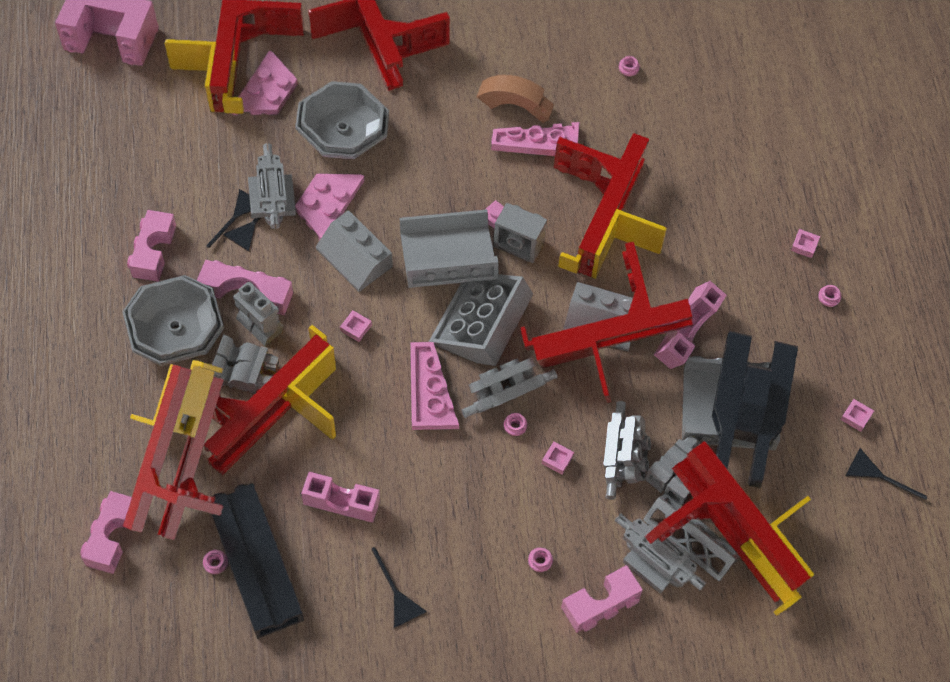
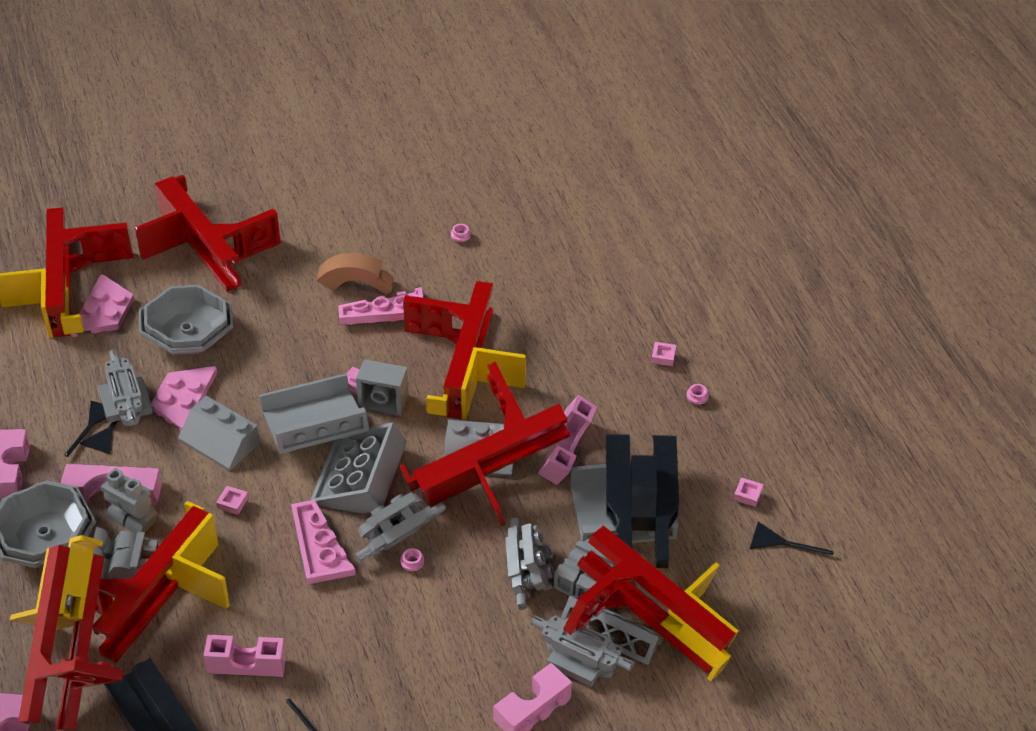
camera: 10 degrees left, 15 degrees down
(540, 553) = (462, 672): bright pink plate -> none
(557, 458) = (461, 582): bright pink plate -> none

